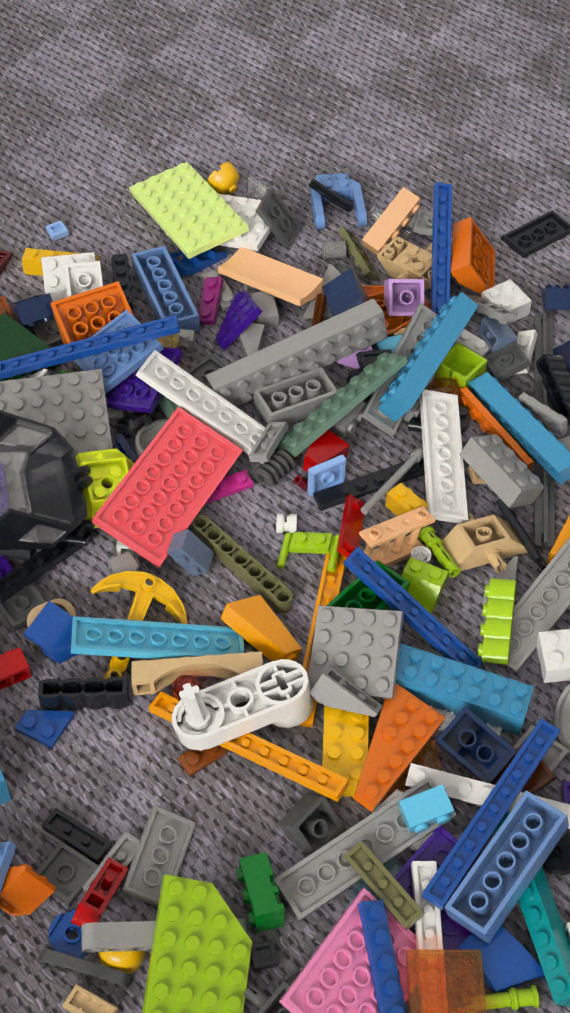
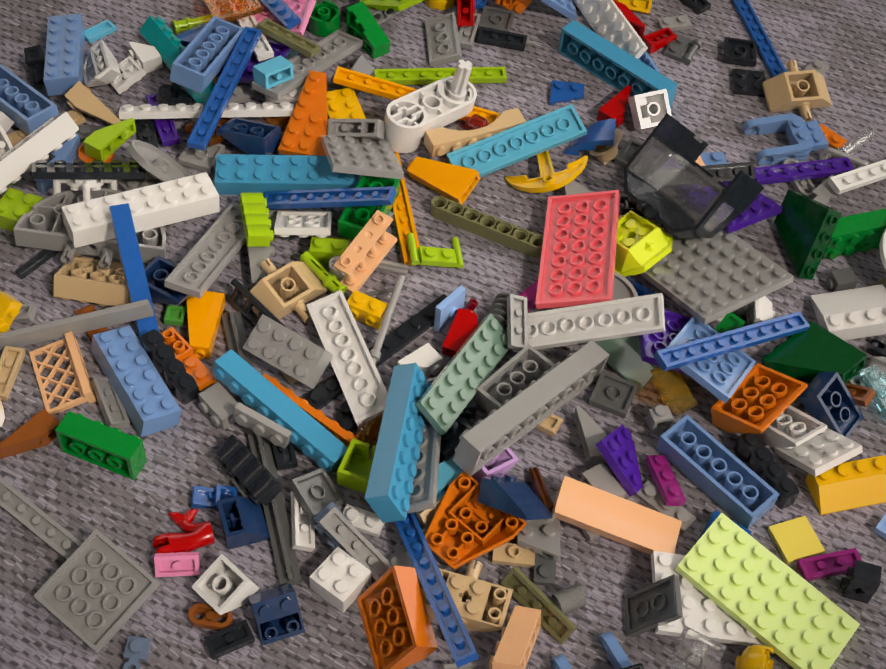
camera: 155 degrees right, 0 degrees up
(89, 693) = (548, 103): black brick -> none
(112, 196) = (861, 581): none -> black brick
(121, 222) = (827, 564): none -> magenta plate
(132, 242) = (796, 539): none -> light yellow tile
(190, 552) = (531, 211): sand blue brick -> none
(192, 795) = (423, 76): none -> lime plate
(286, 523) = (466, 269): white wheel -> none
(308, 926) = (324, 19): none -> green brick
(350, 526) = (407, 267): red plate -> none
(374, 445) = (426, 358): none -> white slope
(403, 296) = (456, 519): lavender slope -> none
(450, 603) = (303, 223): none -> white plate

